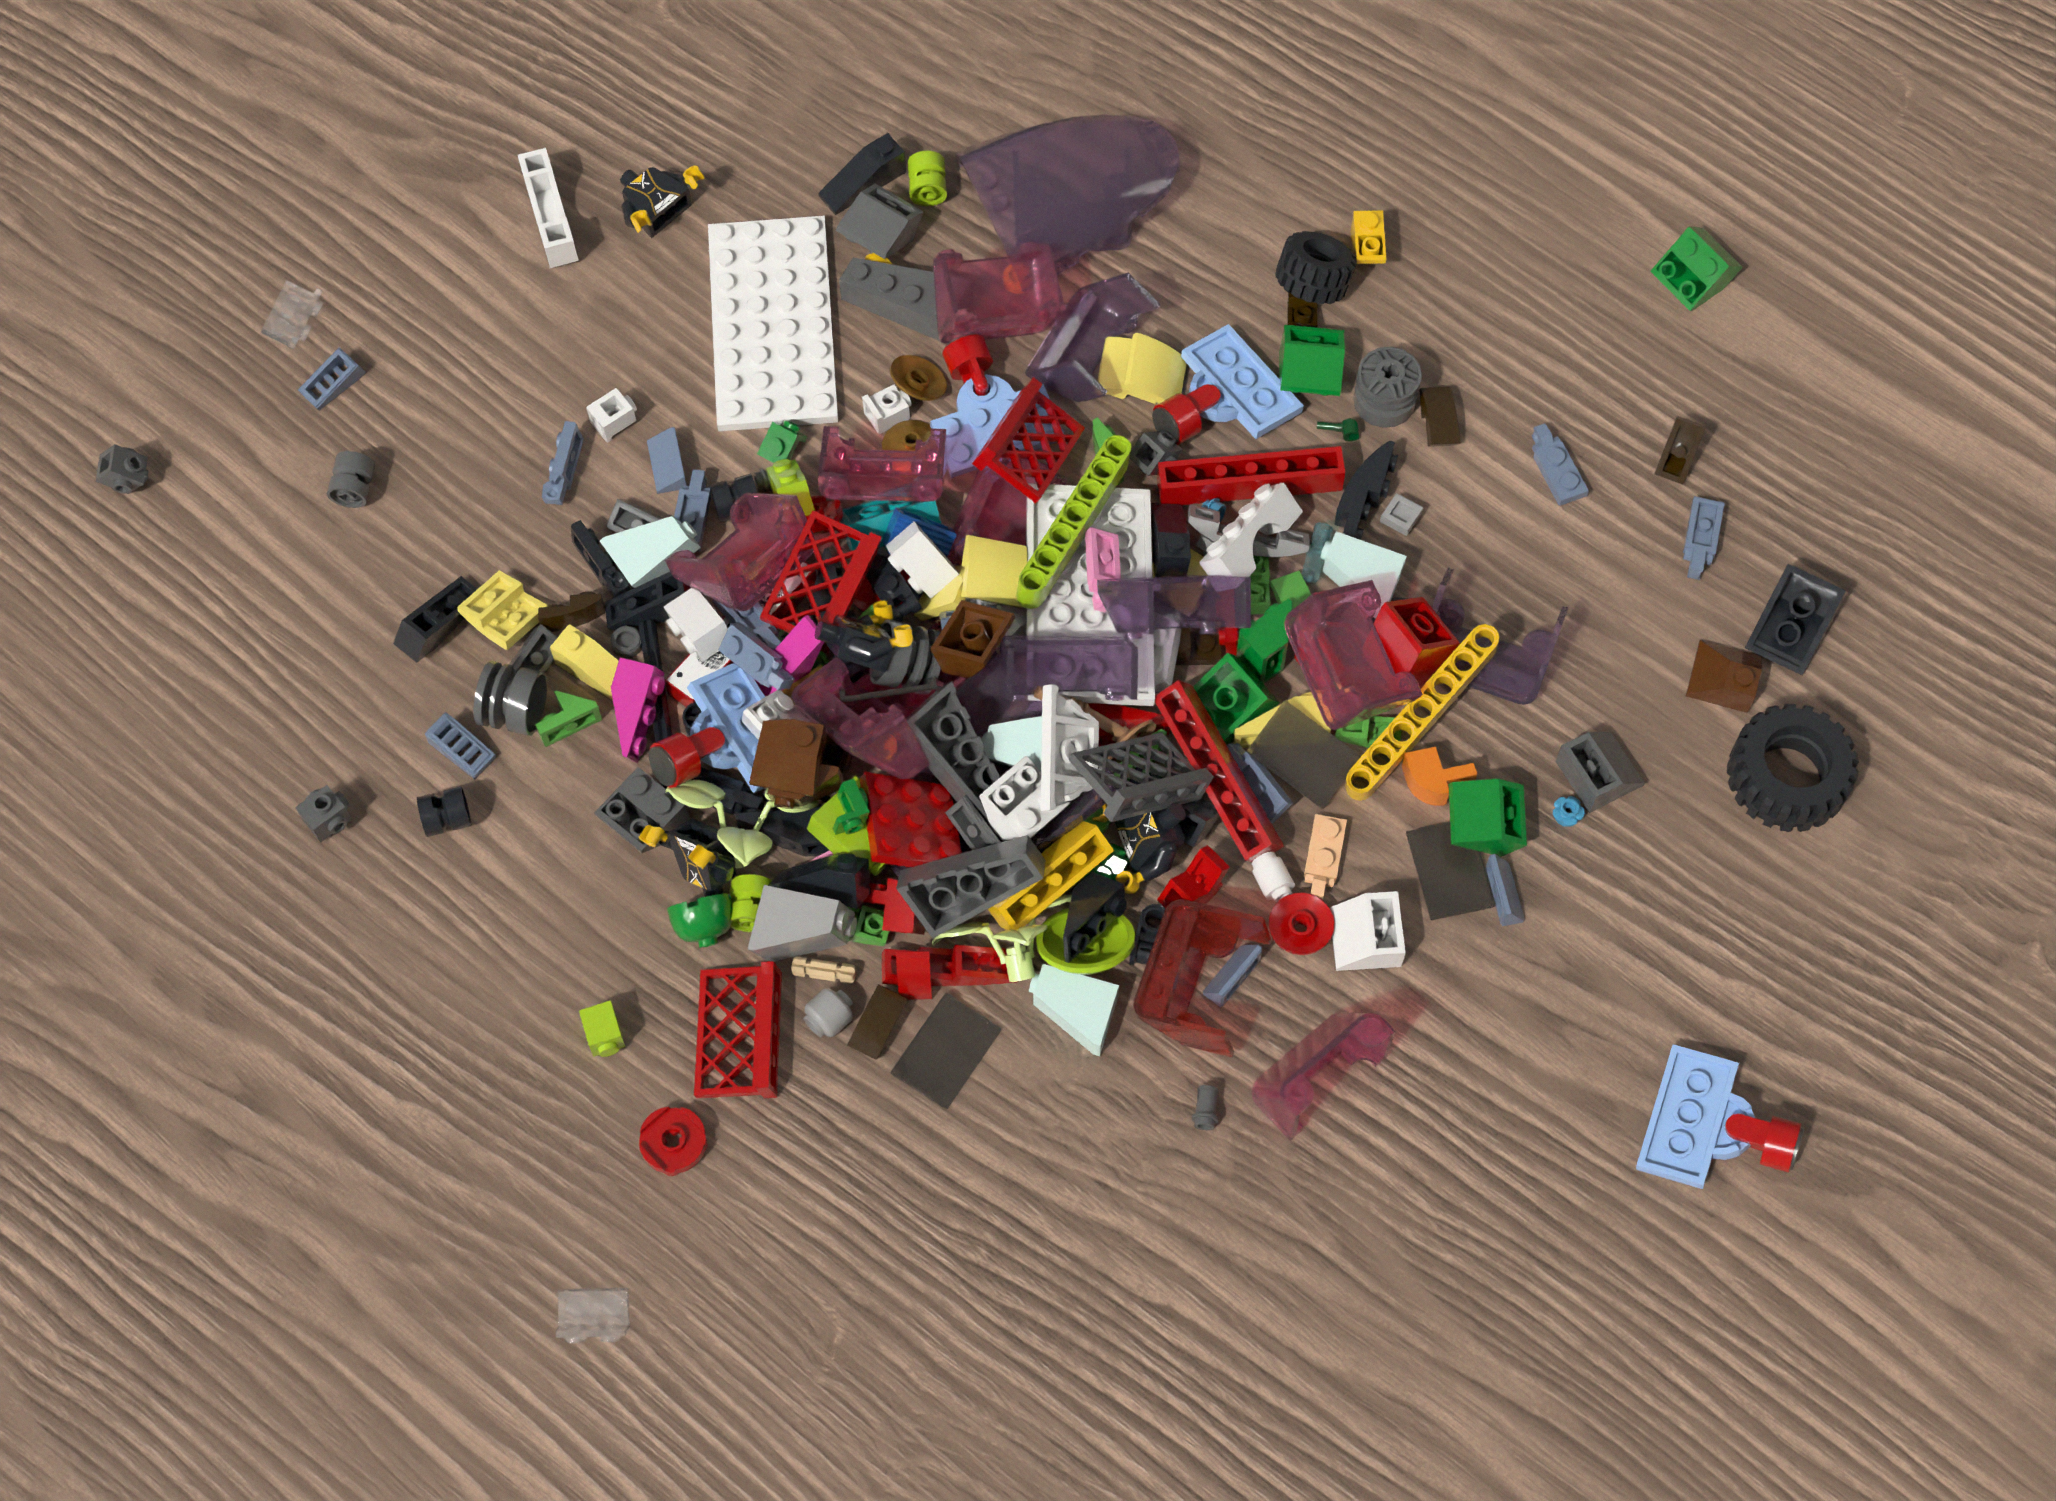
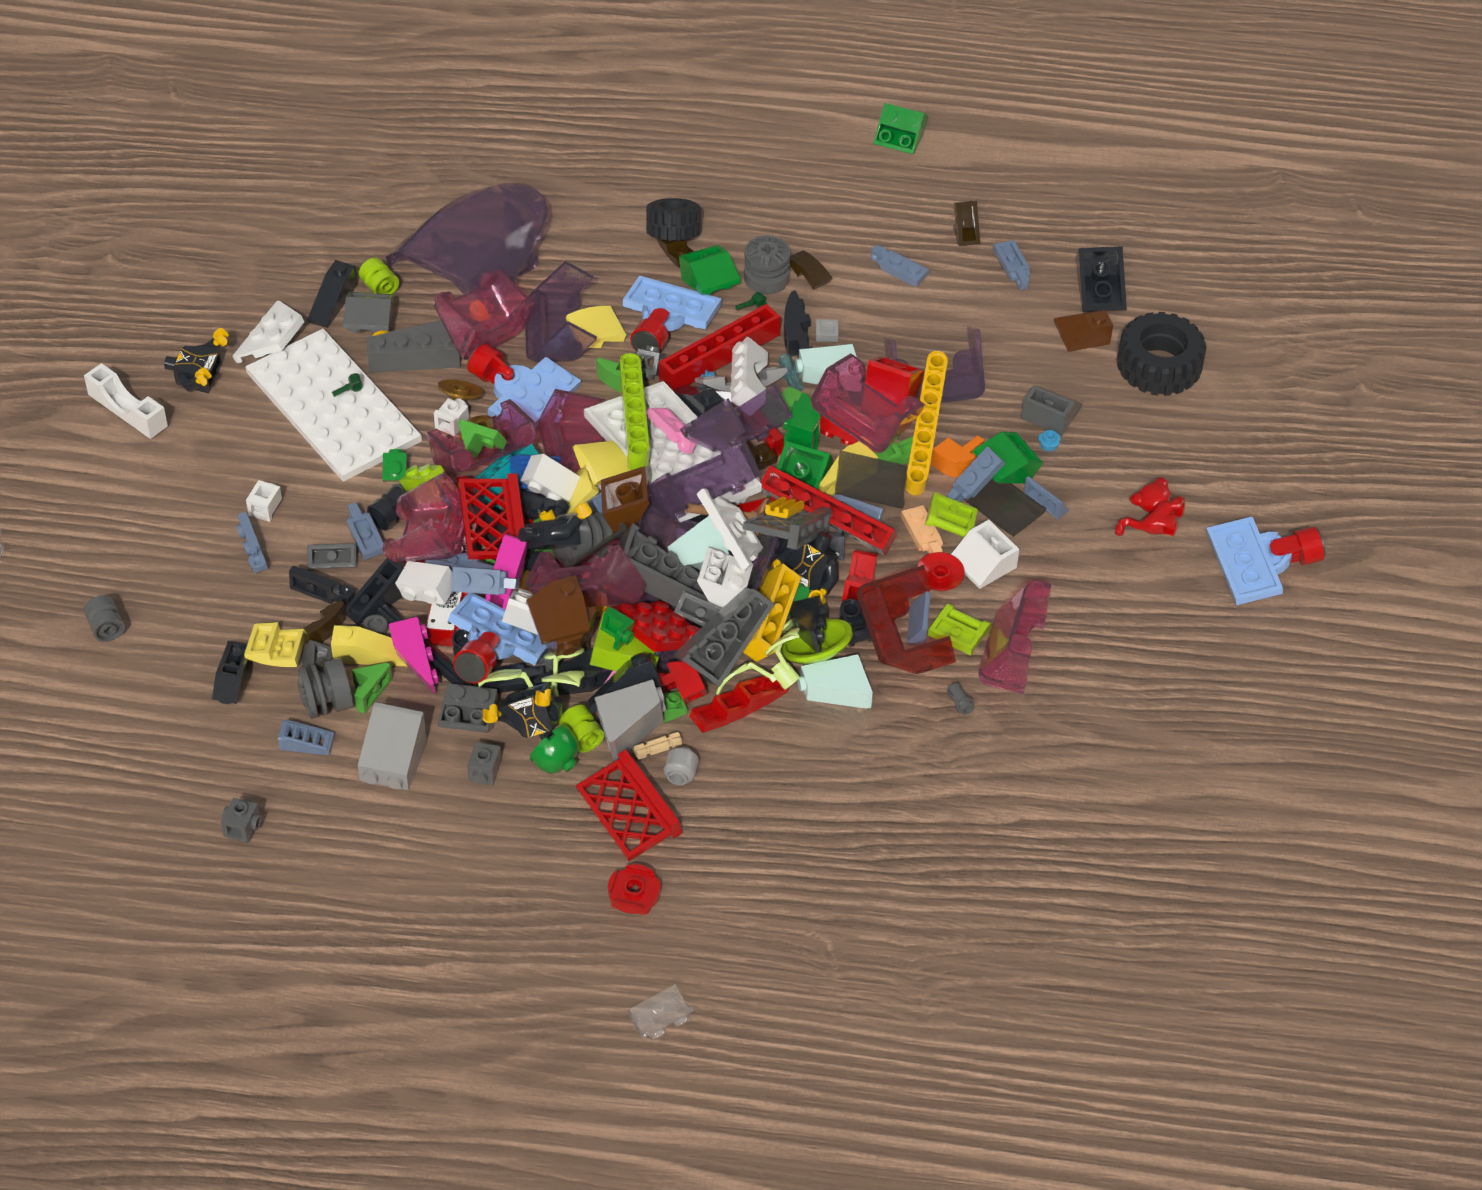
camera: 35 degrees left, 15 degrees down
(324, 372) = (38, 553): sand blue slope -> none
(444, 811) = (329, 776): black wheel -> none
(532, 814) = (392, 746): none -> light grey slope
(602, 1029) = (536, 849): lime brick -> none
(619, 887) = (484, 763): none -> dark grey brick
(643, 549) = (355, 559): light aqua slope -> none
(666, 461) = (323, 511): sand blue slope -> none
(763, 194) = (271, 333): none -> white wing
(802, 312) = (354, 384): none -> dark green hand
(876, 461) = (476, 436): none -> bright green slope
(877, 1021) = (717, 754): dark brown slope -> none
(914, 975) = (725, 712): red slope -> none
(946, 1051) = (771, 752): clear smoke piece -> none
(1007, 430) = (567, 384): red fence -> none
(1152, 743) = (787, 507): none -> yellow tile
(1154, 369) = (612, 317): light yellow slope -> none
(1263, 1019) = (962, 637): none -> lime plate
(1272, 876) = (902, 555): white brick -> none
(1368, 237) = (692, 189): yellow slope -> none
(1372, 849) = (953, 511): none -> lime plate
(1429, 819) = (976, 475): none -> sand blue hinge
(1635, 968) = (1163, 515): none -> red animal

